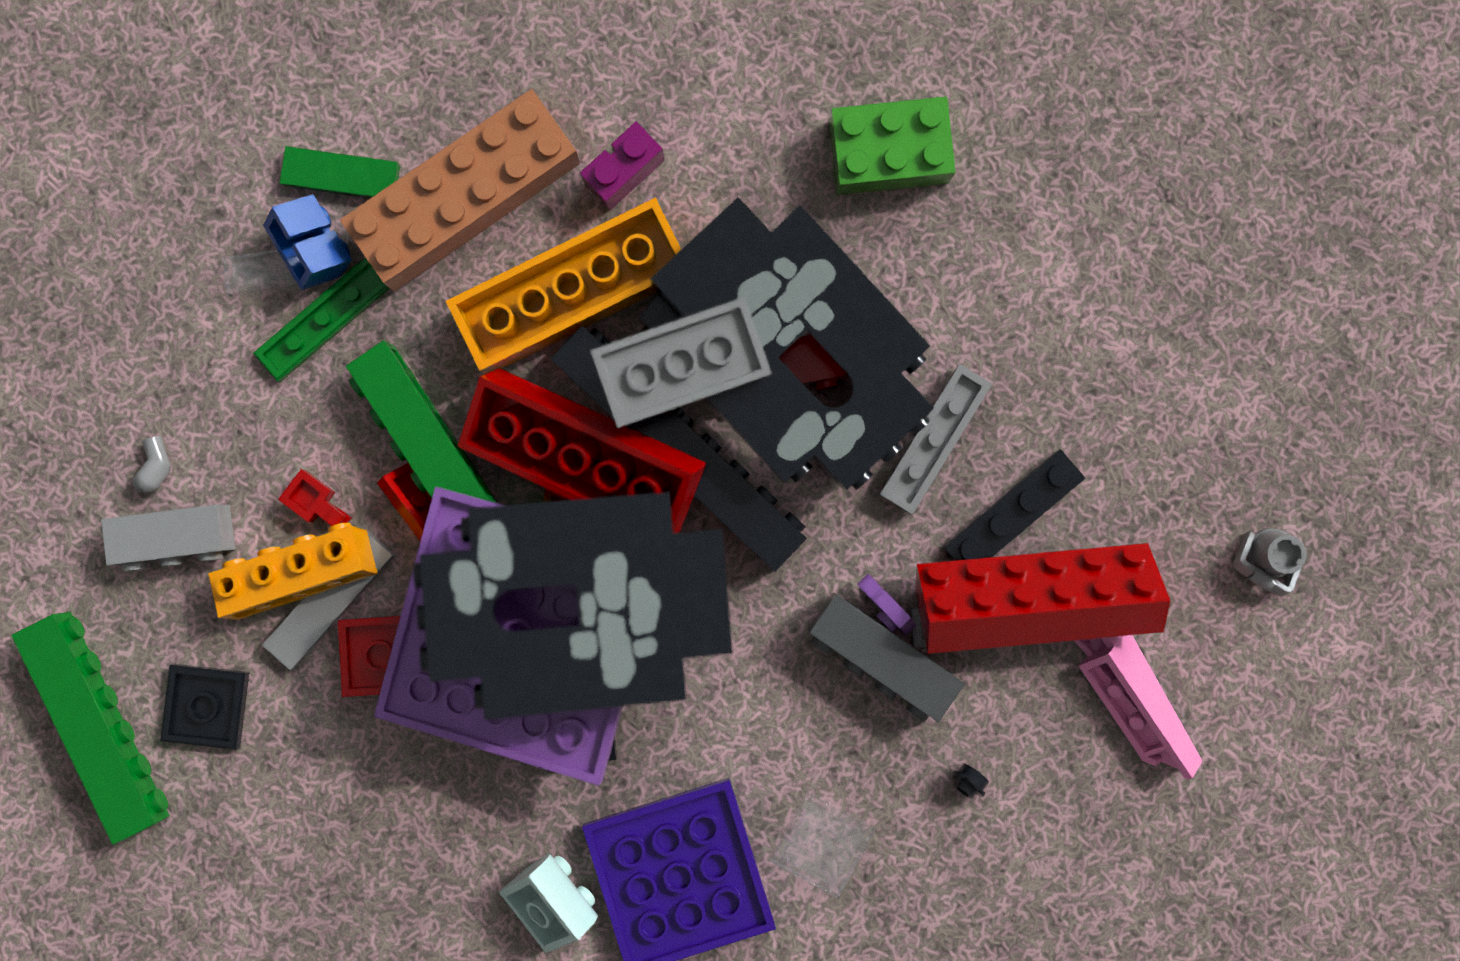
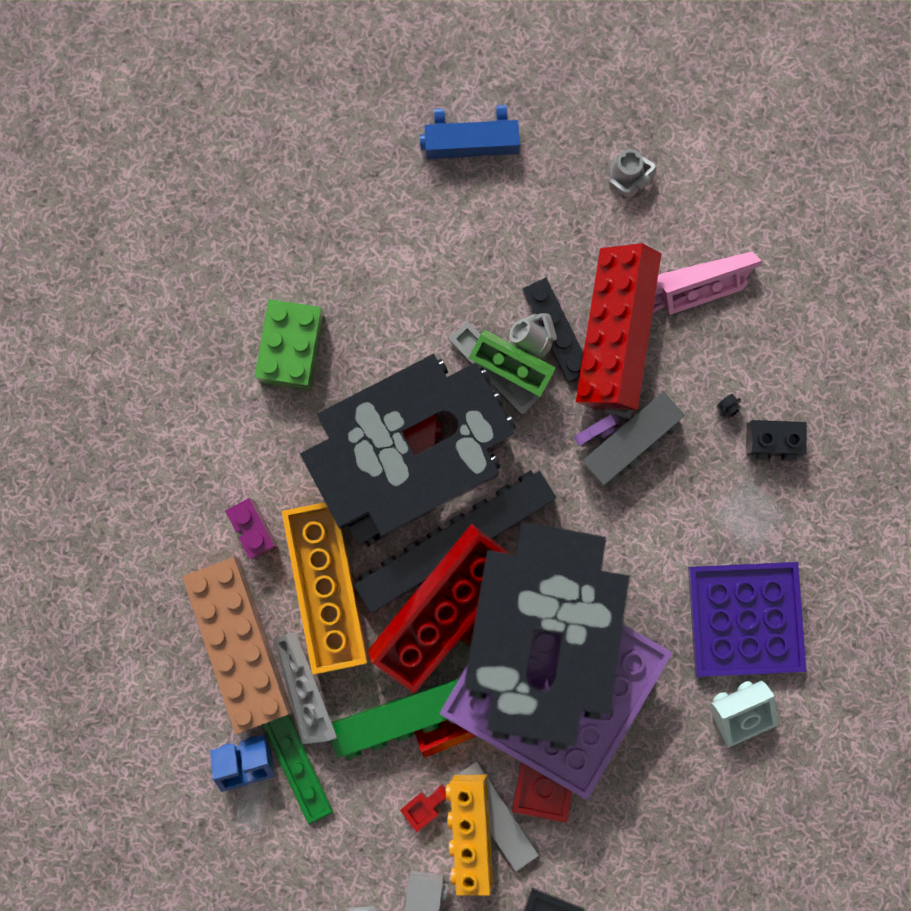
camera: 80 degrees left, 5 degrees down
(336, 172) = (199, 730): green tile -> none
(415, 301) = (305, 698): none -> light grey wing
(681, 362) = (401, 520): light grey plate -> none
(940, 859) = (776, 438): none -> black brick
(947, 459) = (511, 363): none -> bright green brick
(991, 479) = (532, 337): none -> light grey piece
(1259, 318) = (471, 138): none -> blue brick

